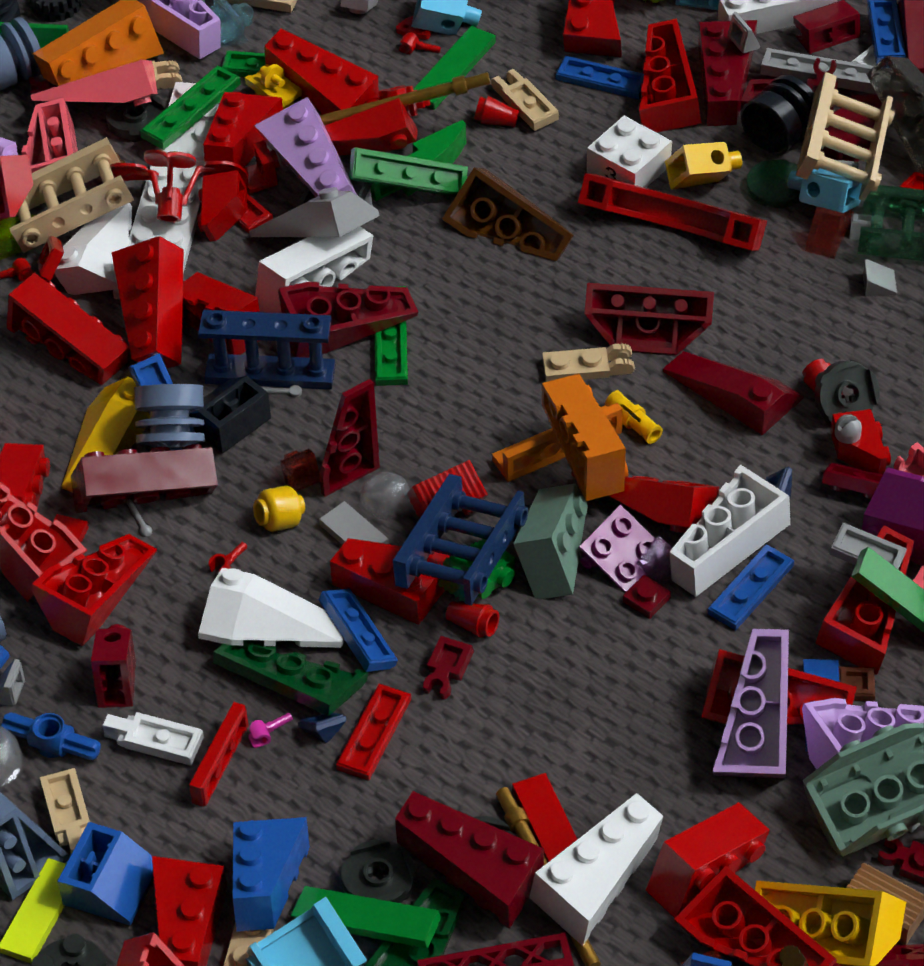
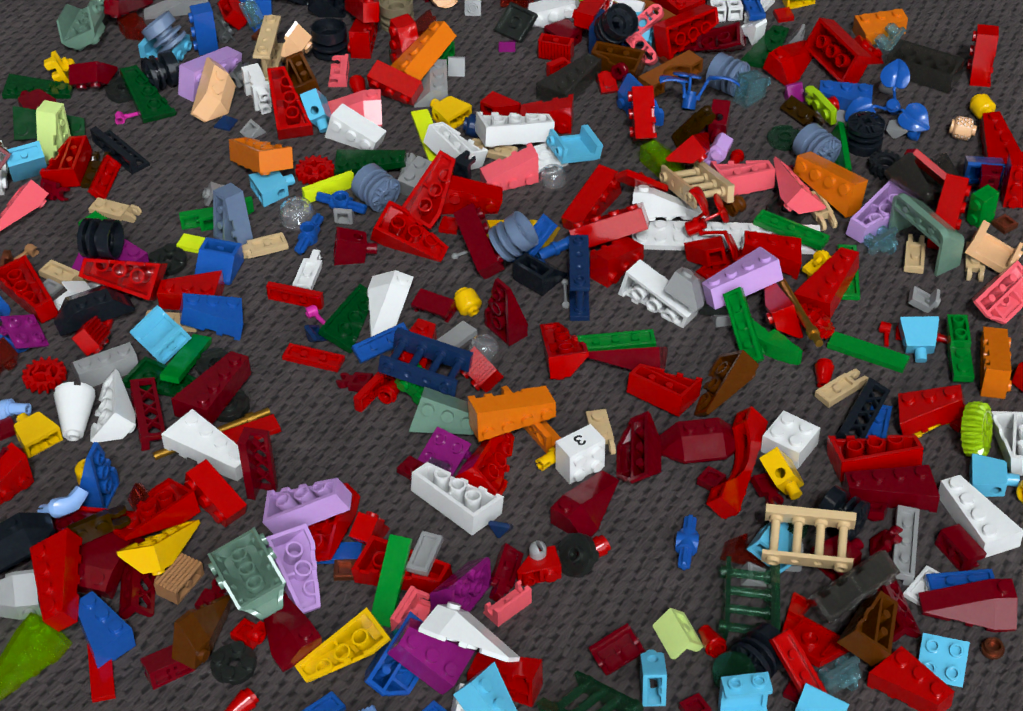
camera: 85 degrees right, 5 degrees down
(226, 561) = (430, 287): red hand -> none
(281, 550) = (434, 304): none -> dark red hinge
(352, 310) = (617, 308): dark red wedge -> none
(425, 390) = (562, 350): none -> red wedge
(443, 303) = (632, 357): none -> dark red wedge
(447, 624) = (370, 391): none -> red tile
(520, 276) = (663, 389): none -> red wedge
(580, 85) = (858, 404): none -> black fence
(626, 250) = (698, 441): none -> dark red wedge
(654, 374) = (580, 454): none -> white brick
(683, 767) = (251, 460): none -> dark red fence
(693, 248) = (710, 478): none -> dark red plate
(715, 193) = (766, 488): none -> dark red plate
(742, 34) = (912, 482): light grey slope -> none
(750, 587) = (420, 517): blue tile -> none
(806, 635) = (366, 526): none -> red slope
(812, 282) = (687, 542): none -> blue axle
(878, 279) = (698, 579): light grey slope -> none

